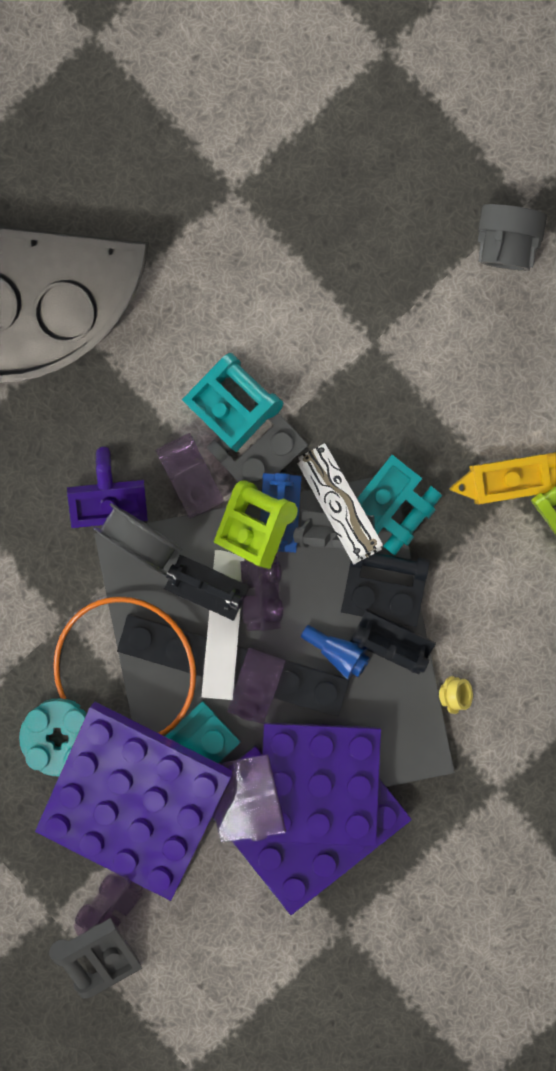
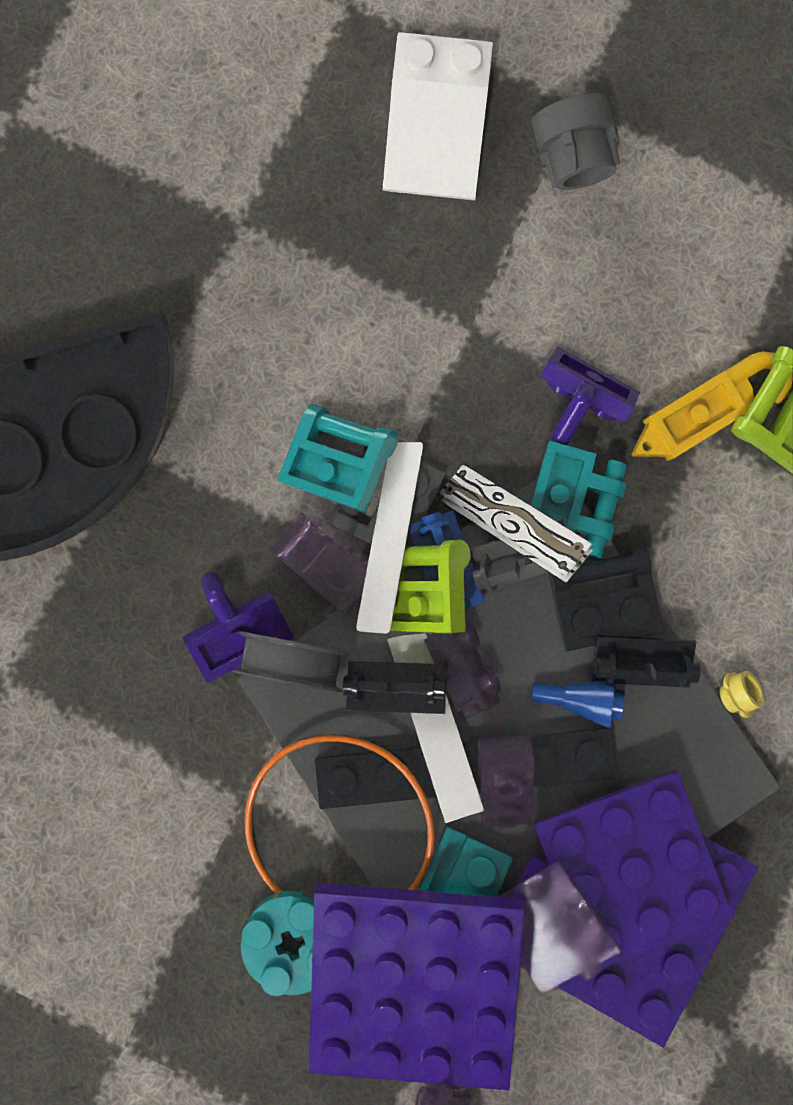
camera: 15 degrees left, 5 degrees down
(246, 478) = (389, 538): none -> white sticker
(413, 171) = (437, 115): none -> white slope
(440, 425) = (589, 389): none -> dark purple plate

